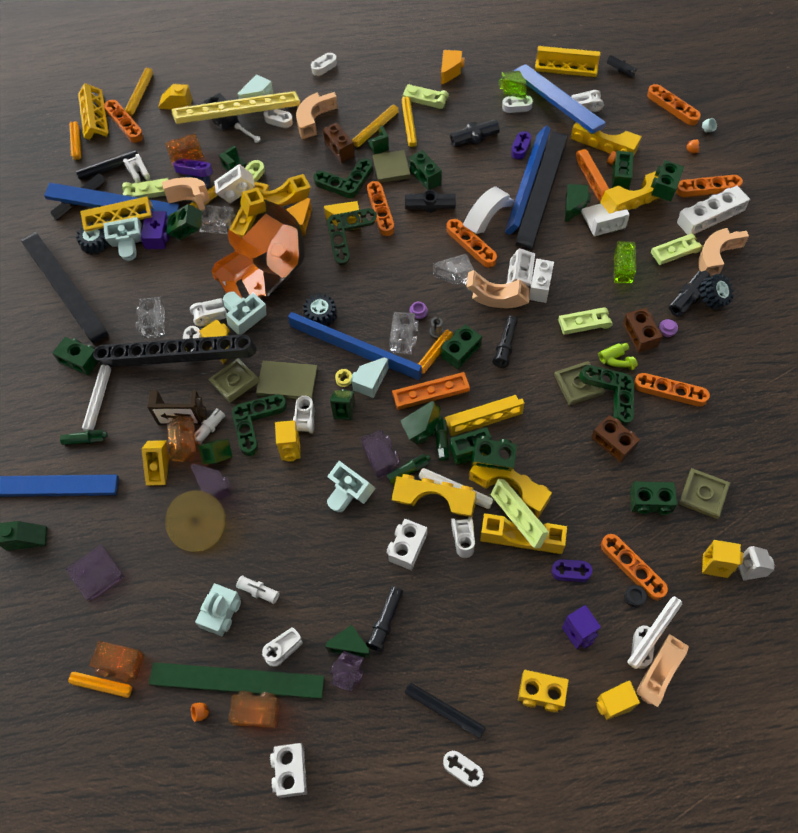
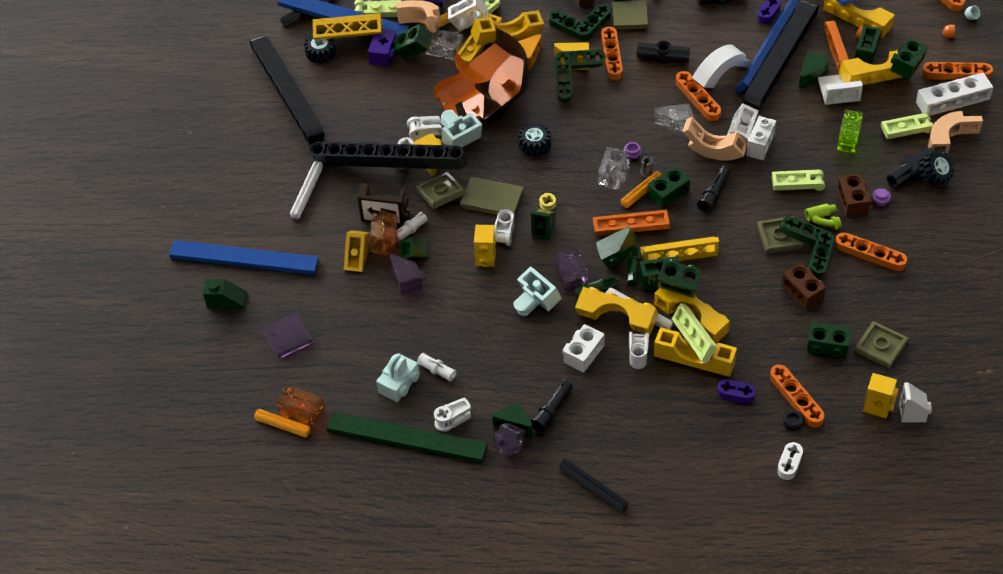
camera: 10 degrees right, 10 degrees down
(75, 355) = (291, 150): dark green brick -> none
(83, 437) = (290, 221): dark green piece -> none
(124, 235) = (352, 47): light aqua brick -> none
(151, 317) = (368, 124): clear brick -> none
(199, 711) = (368, 455): orange hinge -> none
(210, 518) = (393, 315): clear yellow piece -> none
(247, 418) = (448, 226): dark green beam -> none
(254, 710) = (419, 460): clear orange brick -> none
(294, 769) = (446, 509): white brick -> none
(354, 345) = (564, 174): blue tile -> none
(369, 377) = (573, 203): light aqua slope -> none
(425, 170) = (663, 22): dark green brick -> none
(466, 764) = (598, 534): white beam -> none
(543, 684) = (688, 475): yellow brick -> none
(581, 627) = (732, 432): dark purple brick -> none
(617, 701) = (754, 495): yellow slope -> none
(654, 632) = (802, 447): white axle -> none
(661, 670) = (802, 478): light nougat arch -> none

